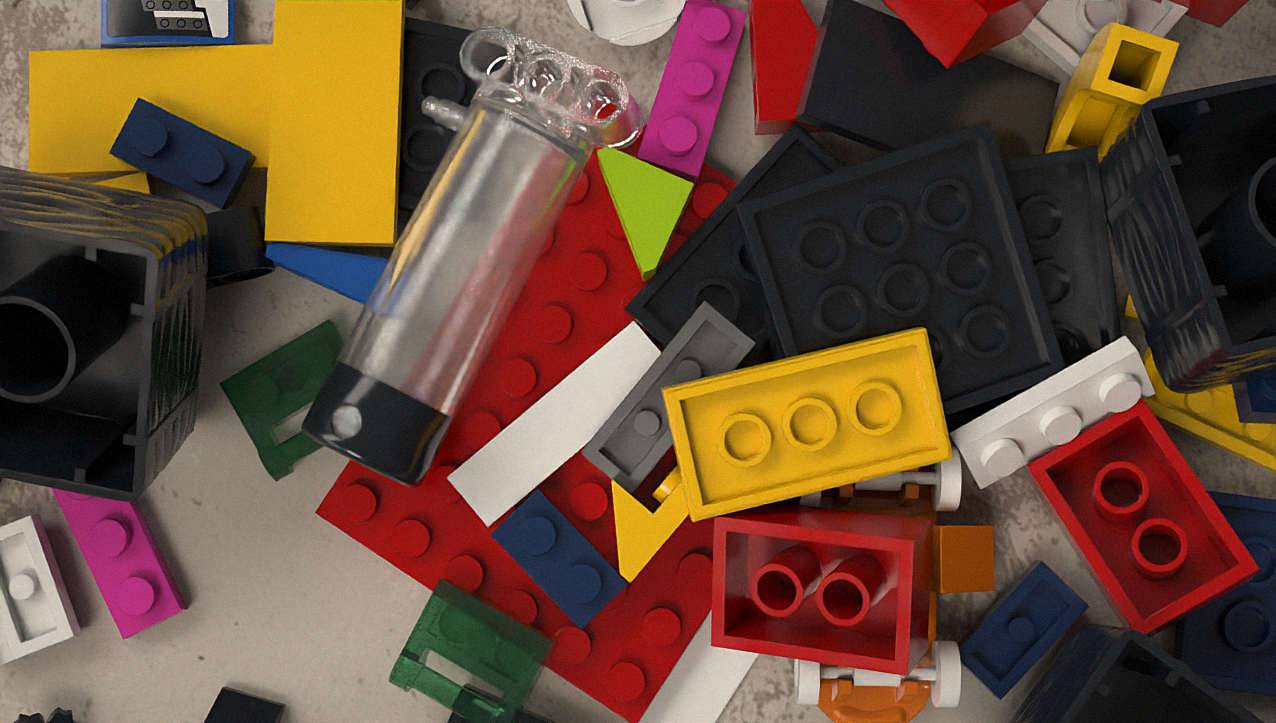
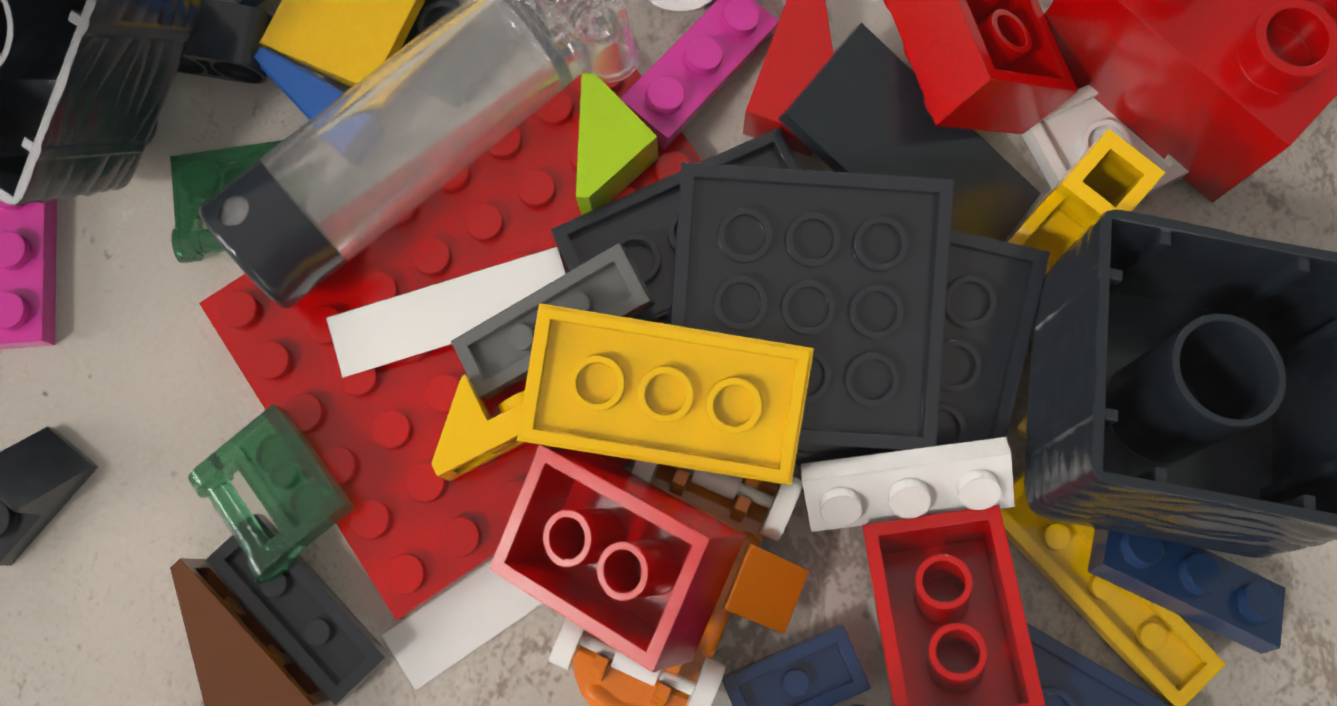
camera: 25 degrees right, 5 degrees down
(559, 559) = (391, 432): dark blue plate -> none

